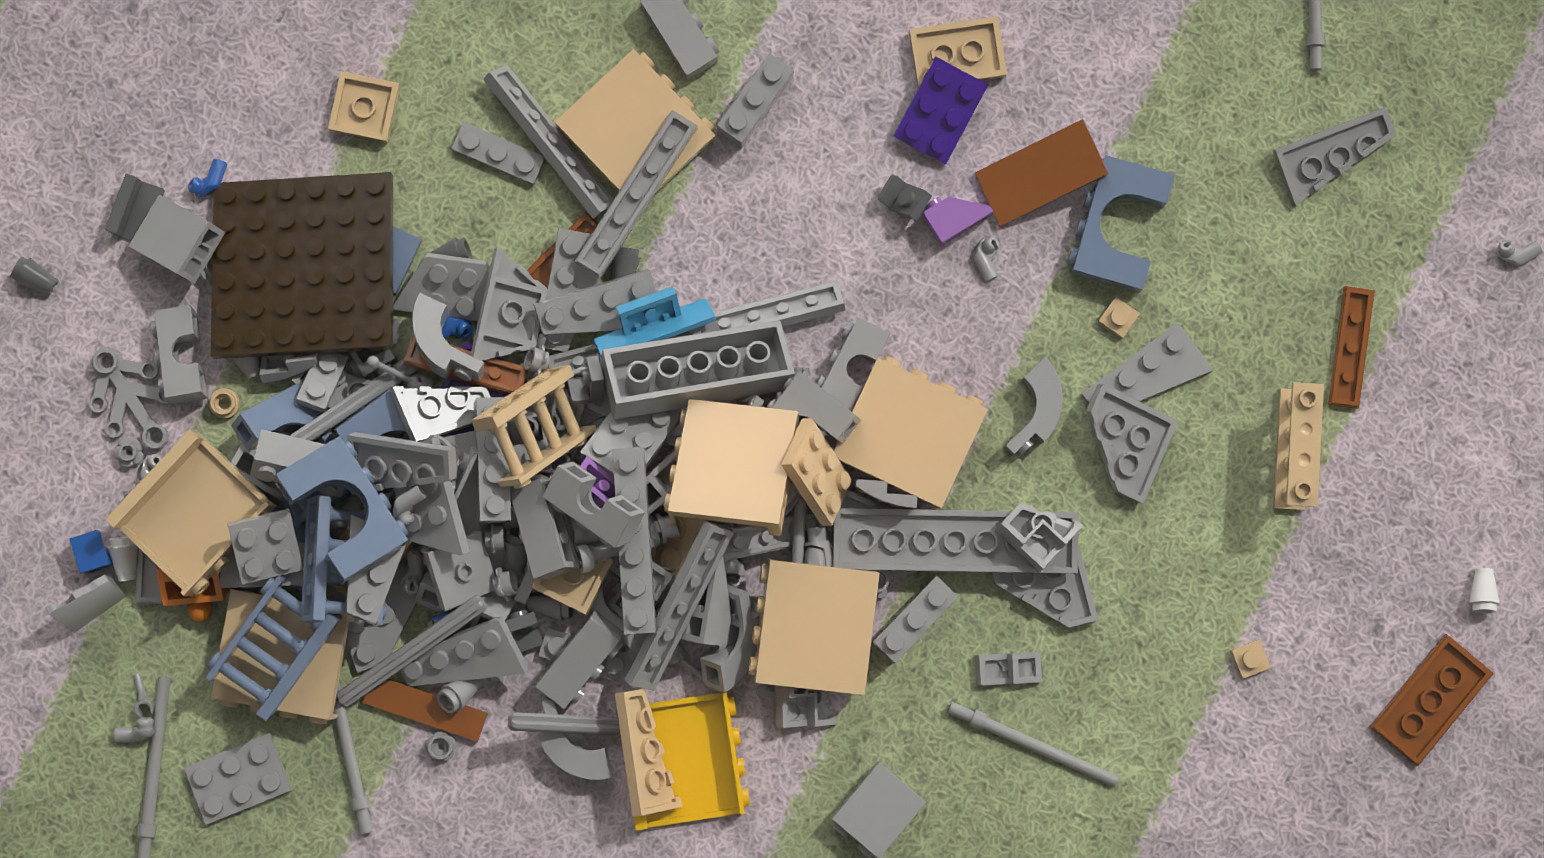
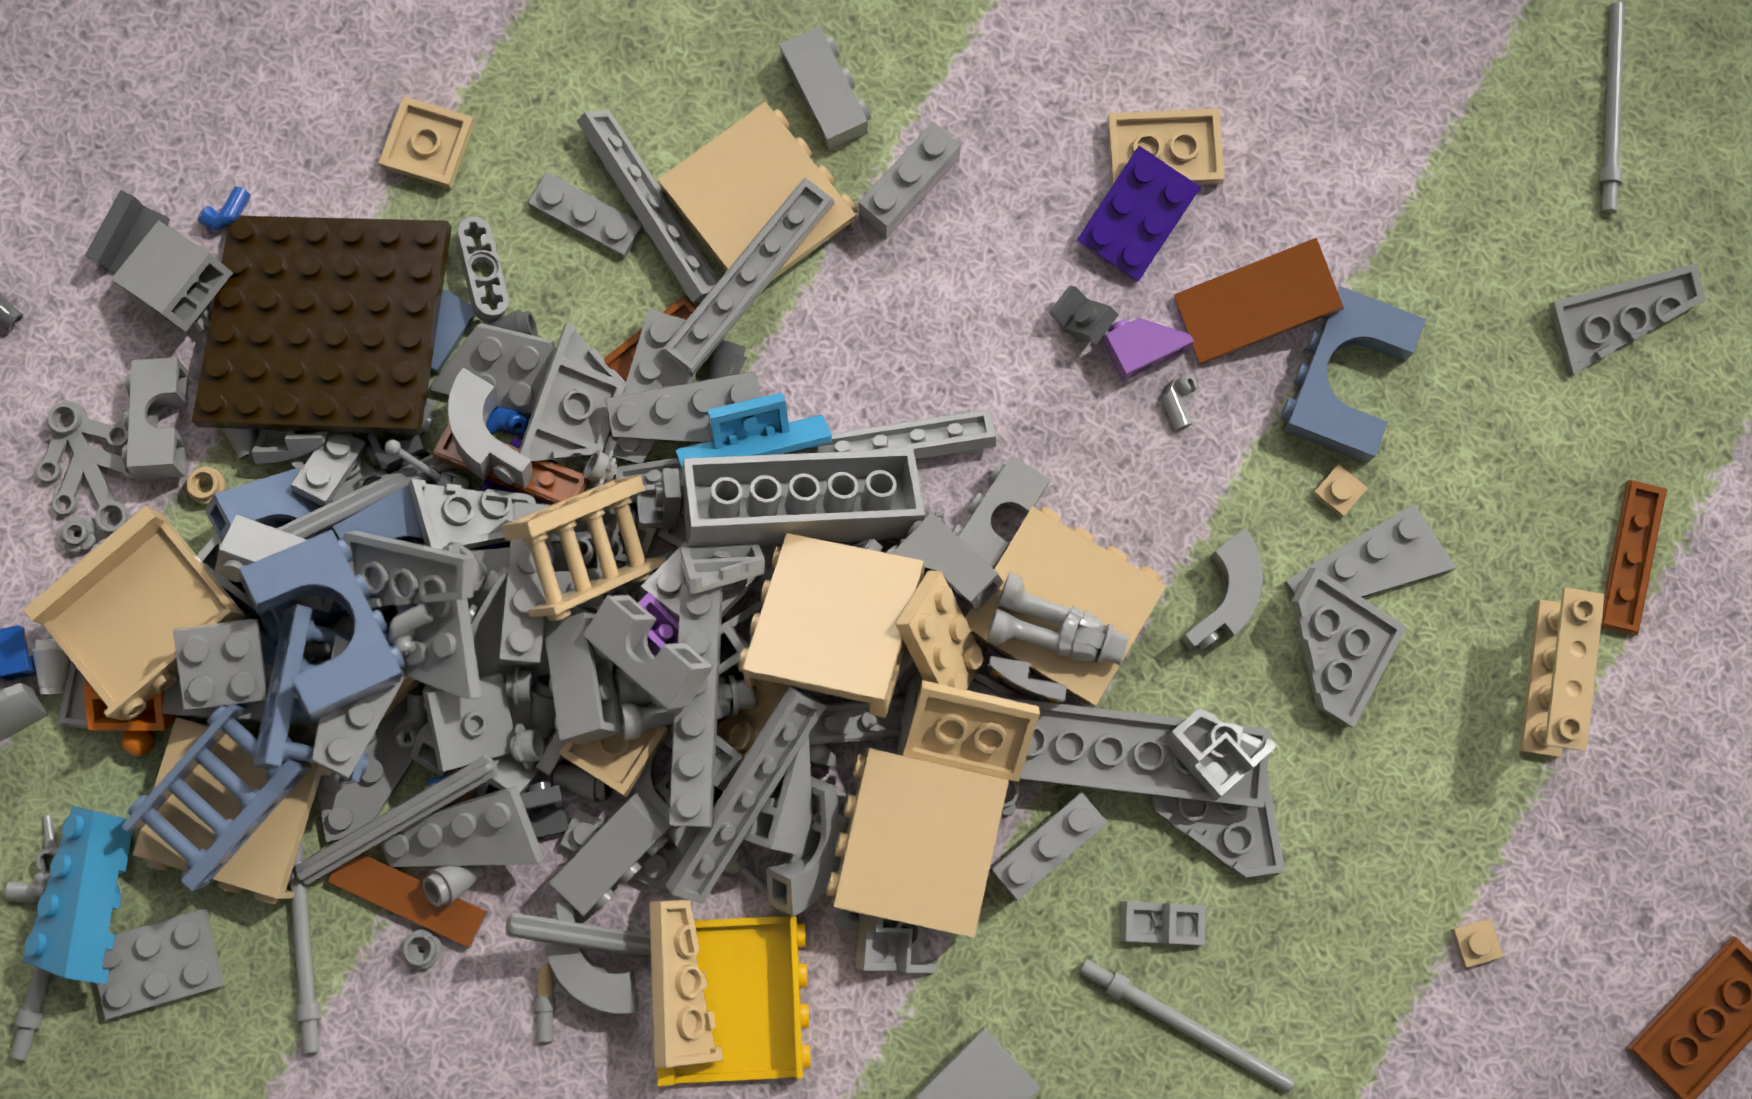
camera: 10 degrees right, 5 degrees down
(176, 733) = (80, 897): none -> dark azure wedge
(406, 190) = (487, 254): none -> light grey beam
(540, 778) = (545, 1004): none -> light grey piece
(640, 430) = (720, 565): none -> light grey wing
(846, 538) = (970, 731): none -> tan plate
(923, 454) = (1079, 635): none -> light grey piece

